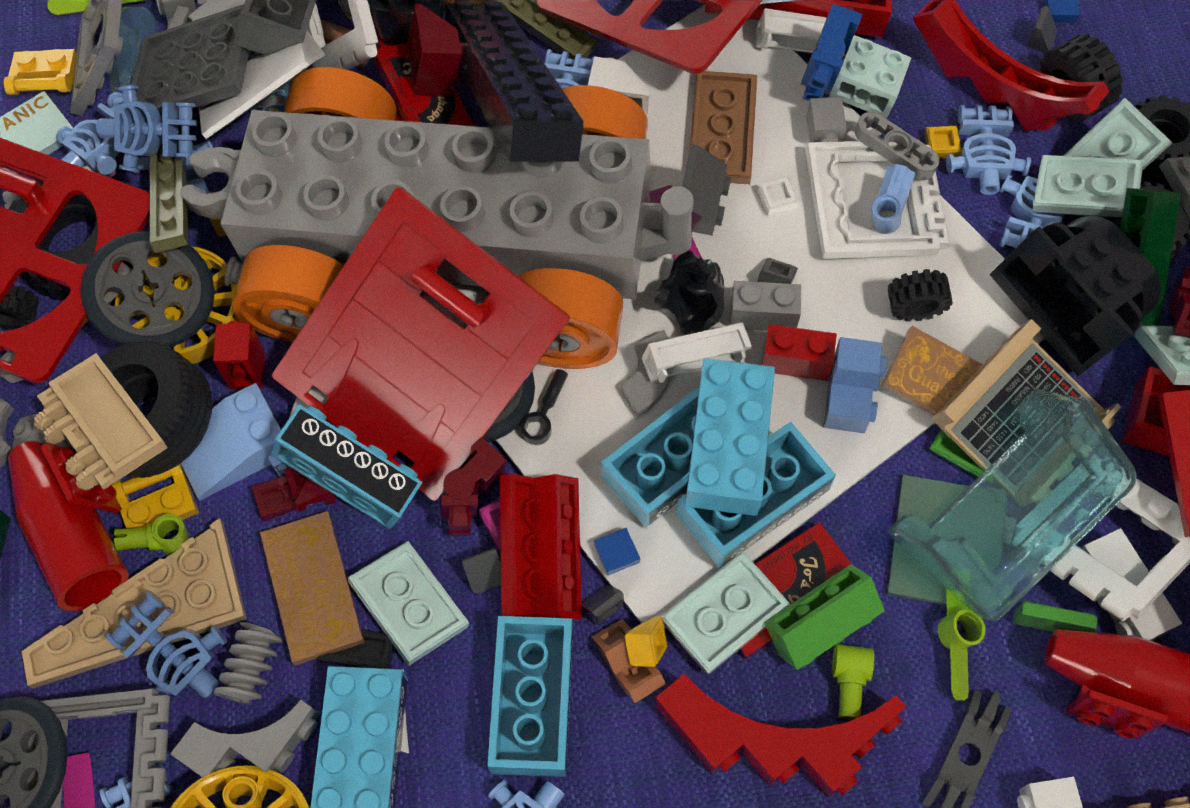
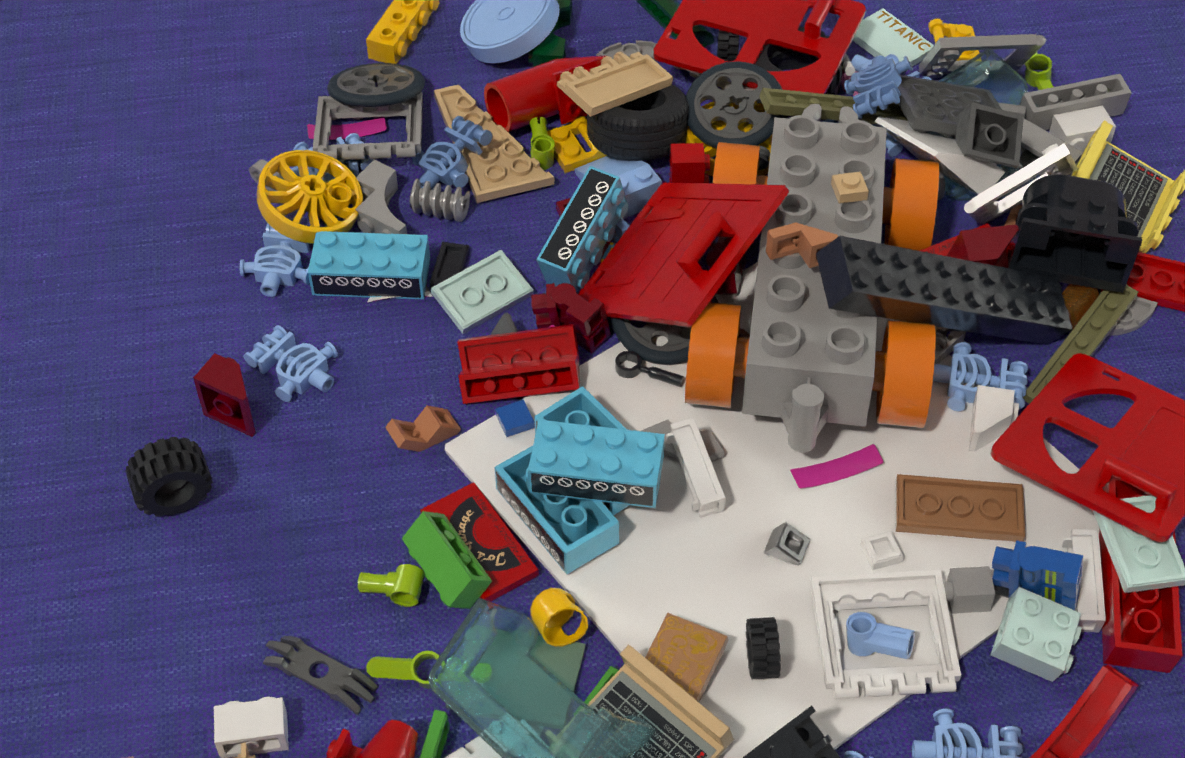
camera: 90 degrees right, 15 degrees down
(311, 588) = (512, 231): medium nougat tile -> none
(374, 139) = (849, 187): none -> tan plate
(475, 178) = (797, 238): none -> nougat slope
(531, 696) = (396, 360): medium azure brick -> none
(603, 604) = (470, 412): dark grey slope -> none
(646, 643) = (434, 437): yellow slope -> none
(693, 293) = (759, 467): black hair -> none
(707, 183) = (865, 467): dark grey slope -> none
(724, 612) = (458, 490): light aqua tile -> none
(765, 304) = (749, 525): light grey brick -> none
(773, 750) = (351, 491): red arch -> none
(799, 352) = (700, 549): red brick -> none
(852, 384) = (663, 587): medium blue brick -> none
(885, 498) = (551, 611): none -> yellow helmet
(894, 133) = (944, 660): light grey beam -> none
(943, 140) = (973, 711): yellow tile -> none

